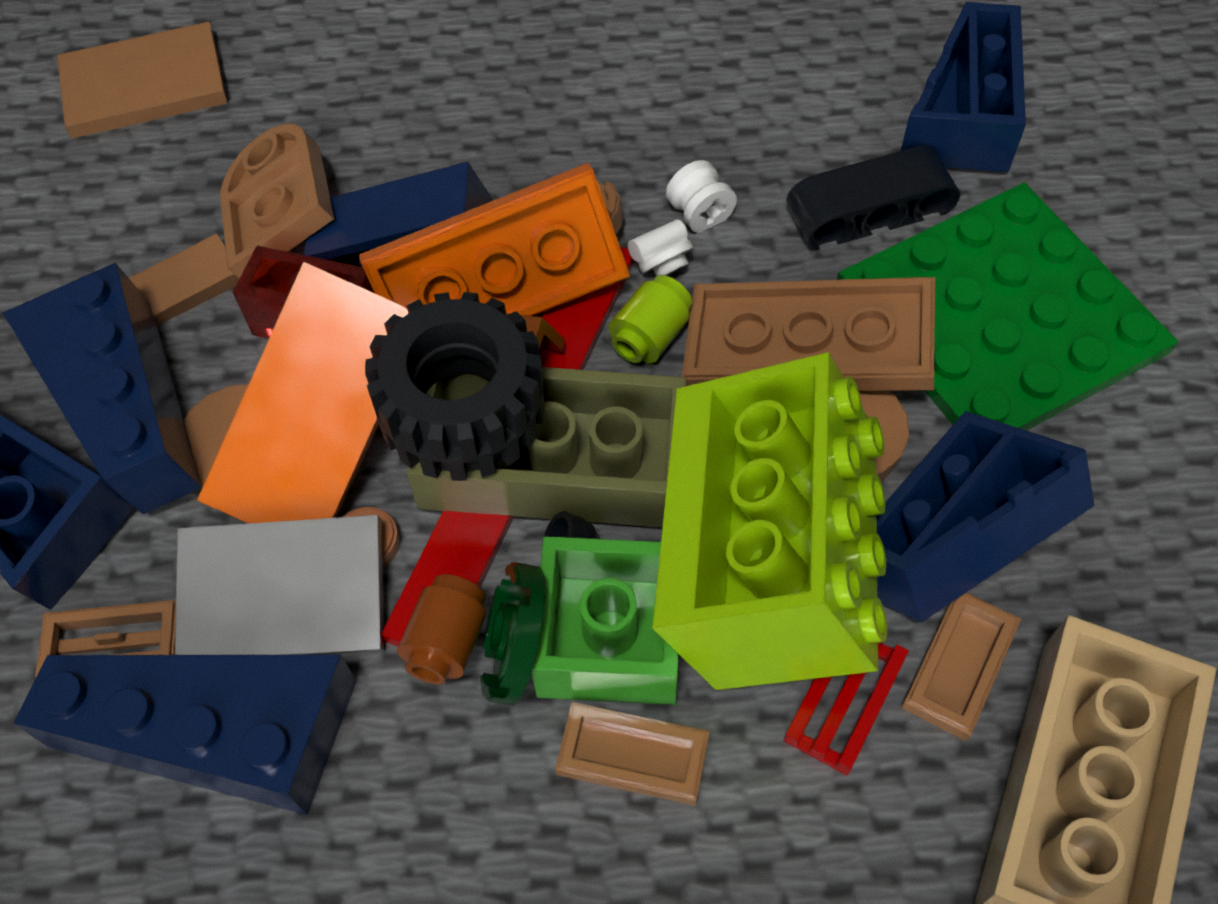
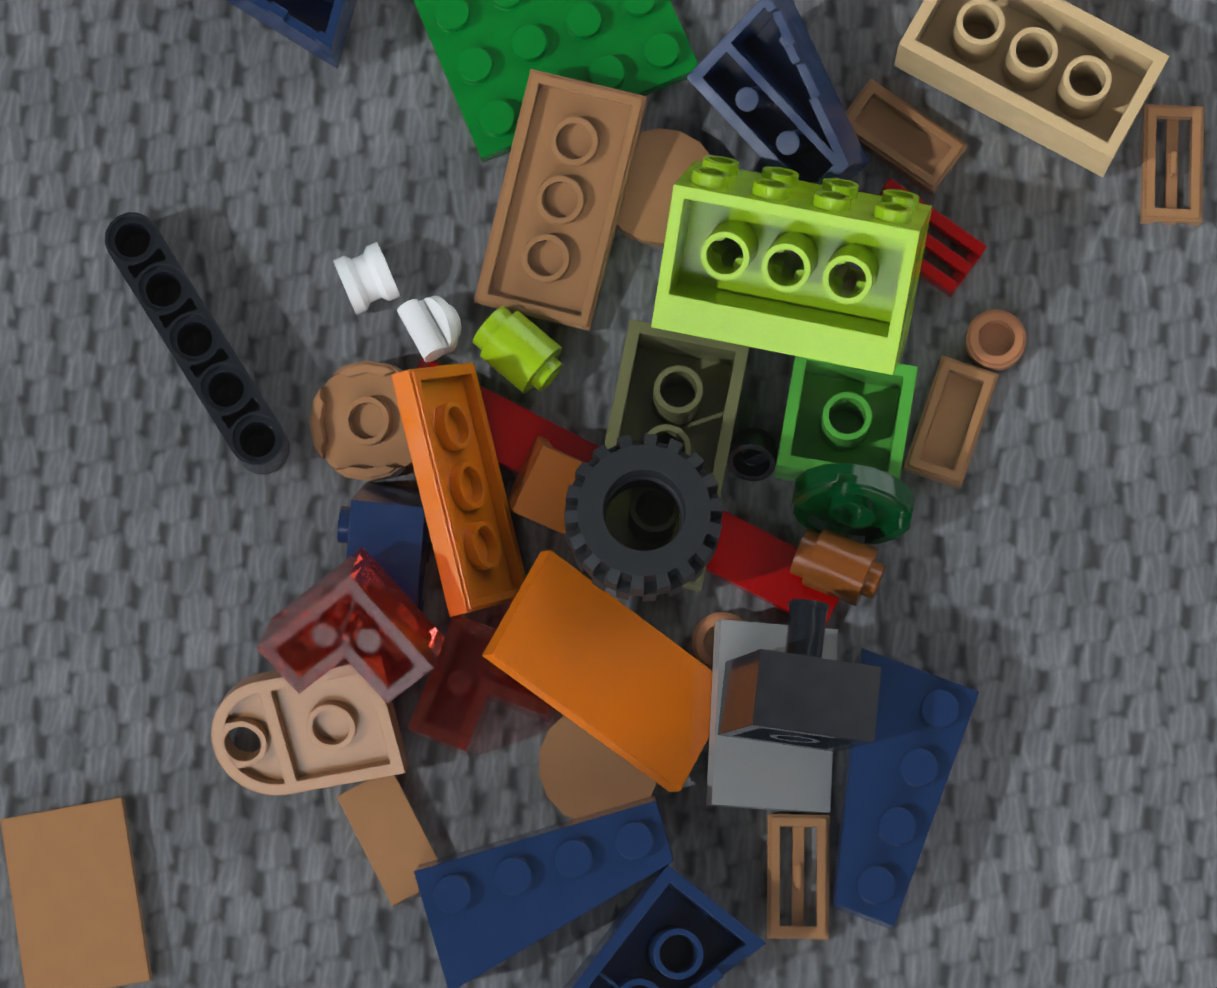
camera: 80 degrees left, 20 degrees up
(274, 577) = (797, 693): none -> black brick
(340, 174) = (358, 618): none -> clear red brick
(617, 89) = (178, 323): none -> black beam
(739, 795) = (995, 340): none -> nougat tile
(872, 195) = (392, 104): black beam -> none

